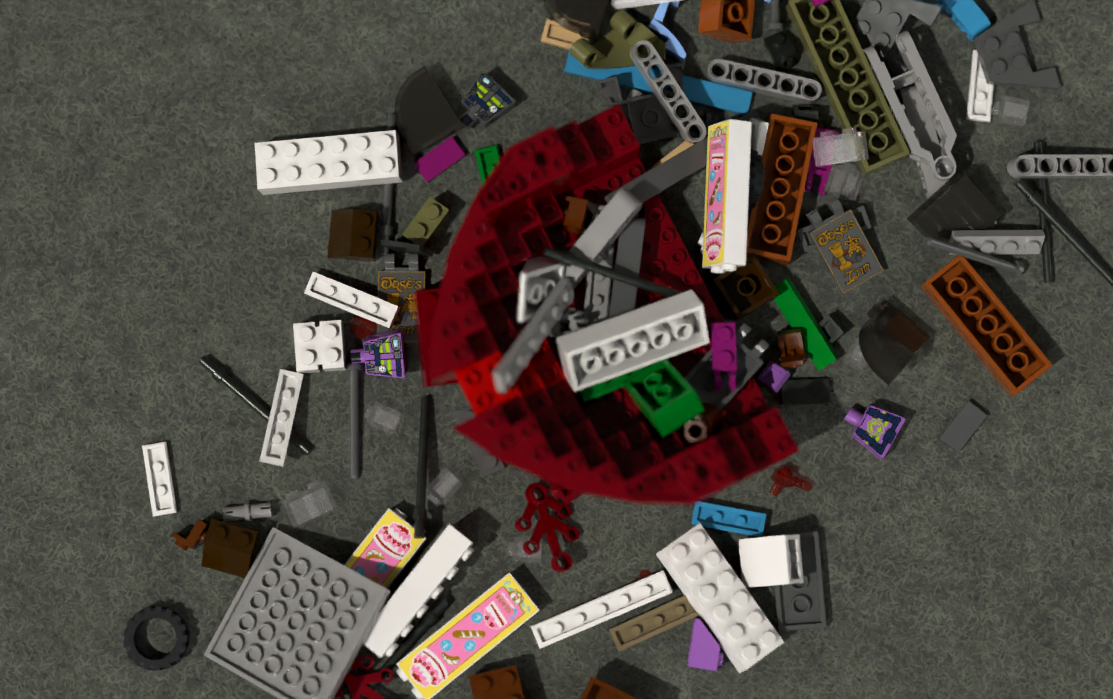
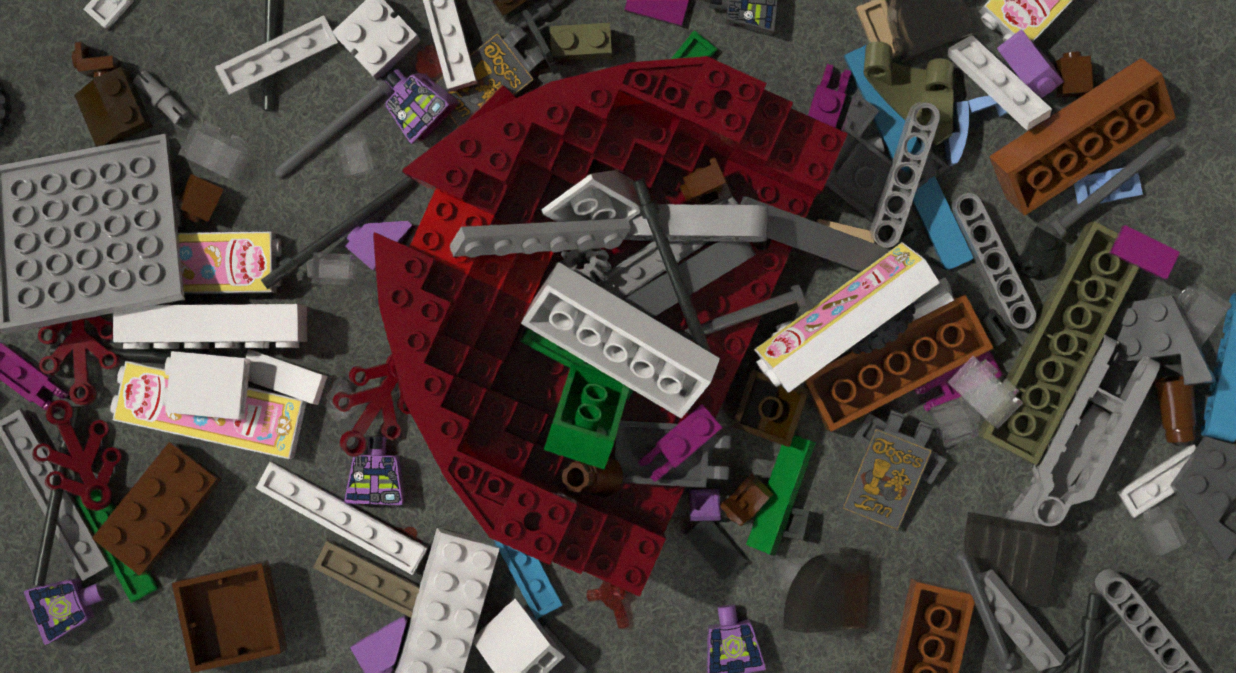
camera: 55 degrees right, 5 degrees up
(331, 537) = (198, 199): none -> reddish brown brick
(447, 448) = (362, 242): none -> medium lavender slope
(452, 623) = (206, 385): none -> white brick
(484, 574) = (285, 377): none -> white tile
(585, 104) = (827, 102): none -> magenta hinge
(593, 566) = (375, 477): none -> torso
(690, 215) = (795, 296): none -> dark grey bar
(943, 42) = (1176, 408): none -> reddish brown plant

